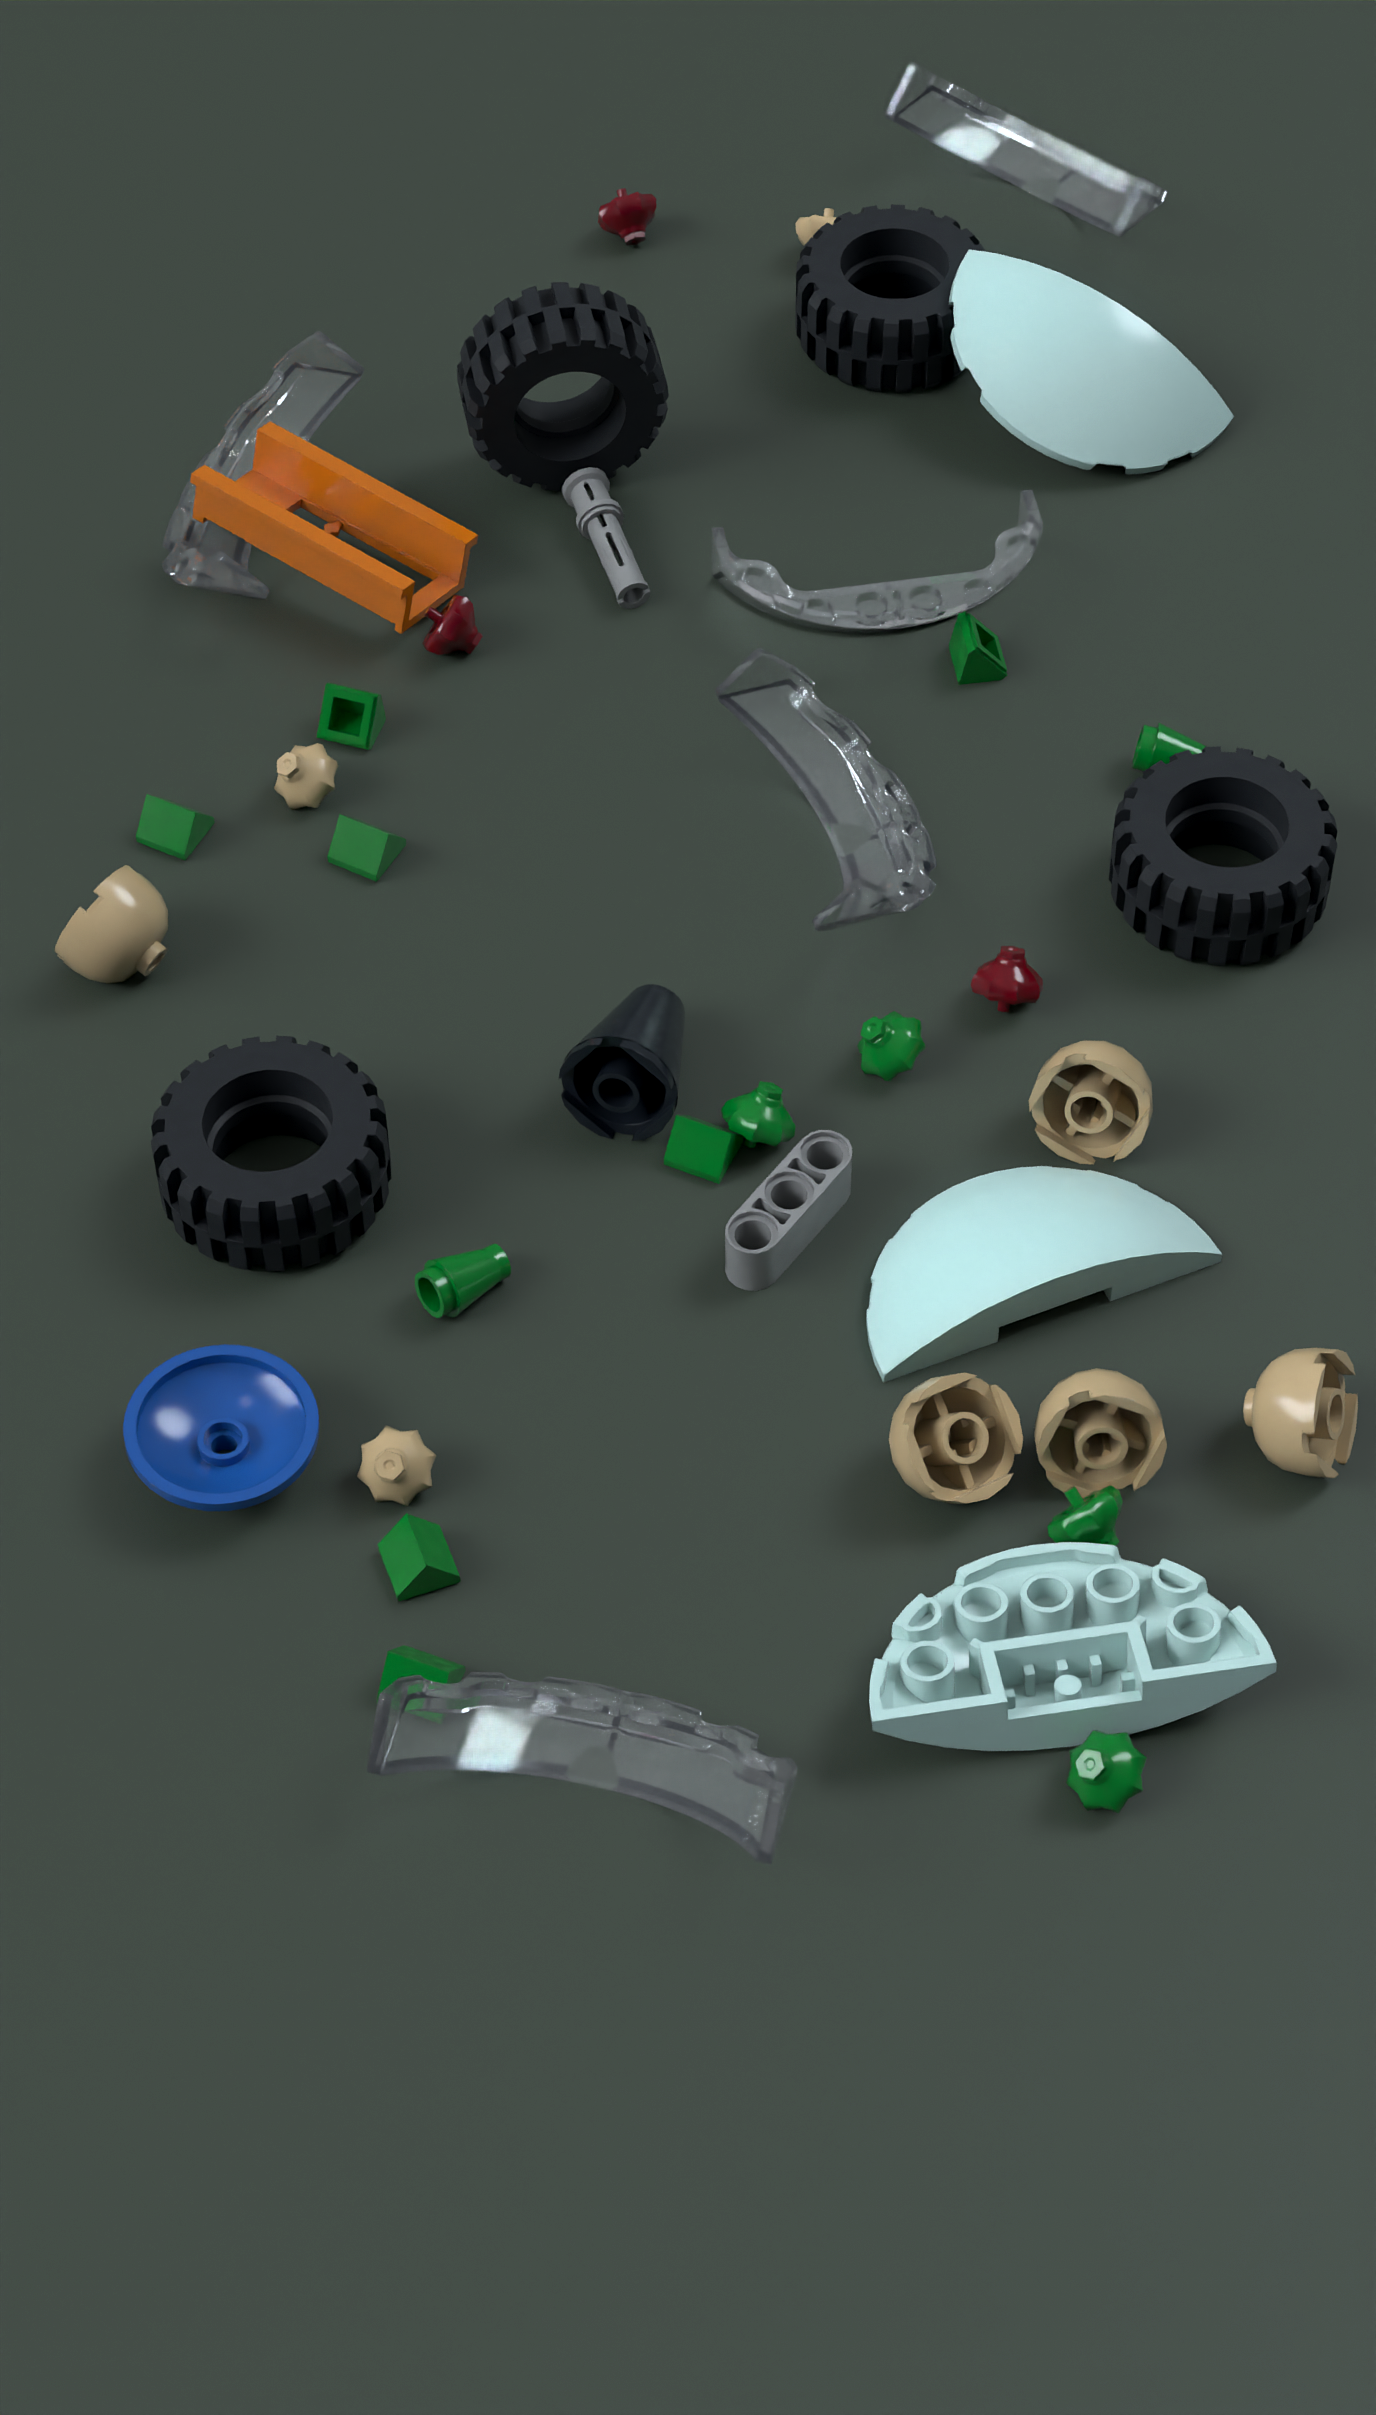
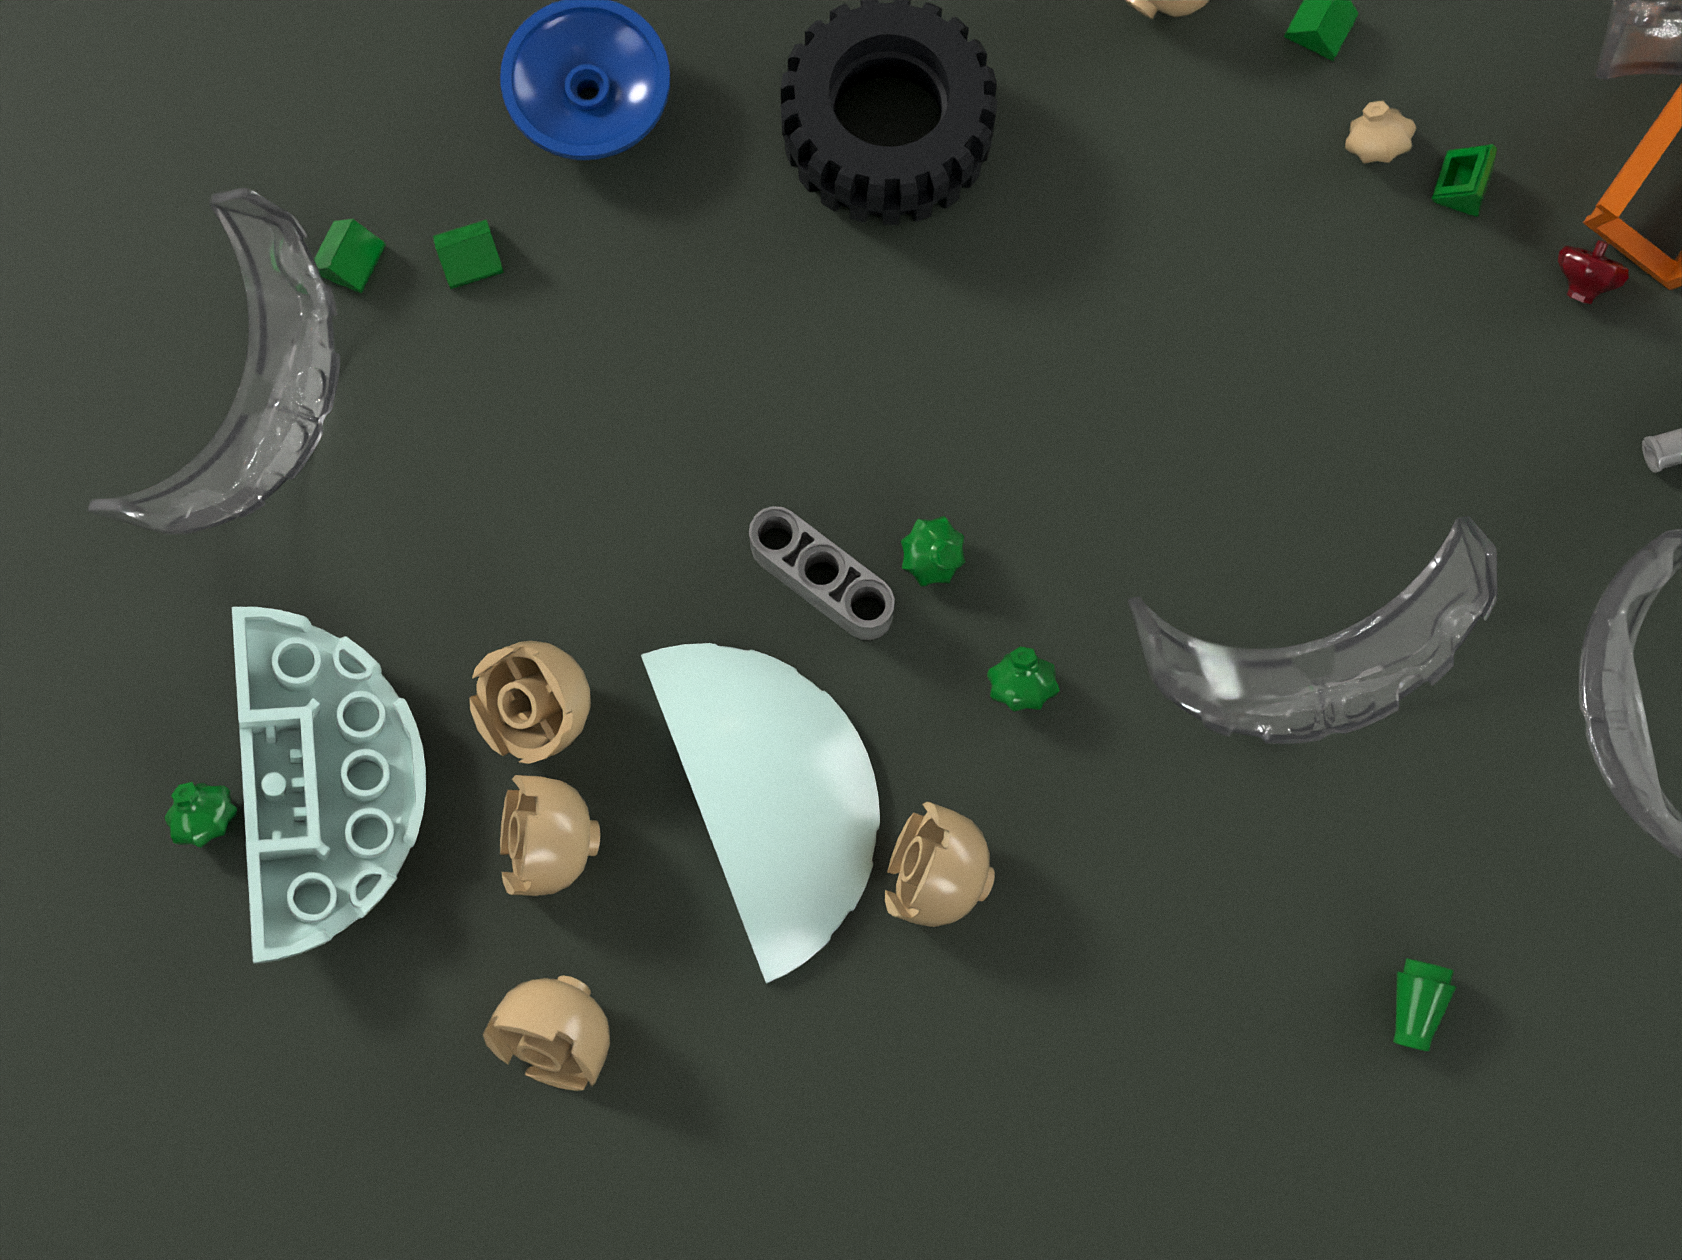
camera: 90 degrees right, 25 degrees up
(363, 847) = (1296, 196): green slope -> none
(396, 1465) = (555, 228): tan piece -> none
(458, 1280) = (757, 283): green cone -> none
(628, 1066) = (1001, 433): black cone -> none
(701, 1148) = (912, 496): green slope -> none
(975, 652) = (1577, 810): green slope -> none
(1008, 979) = (1101, 800): dark red piece -> none
(1088, 1518) = (459, 821): green piece -> none
(1214, 908) = (1336, 1015): black tyre -> none

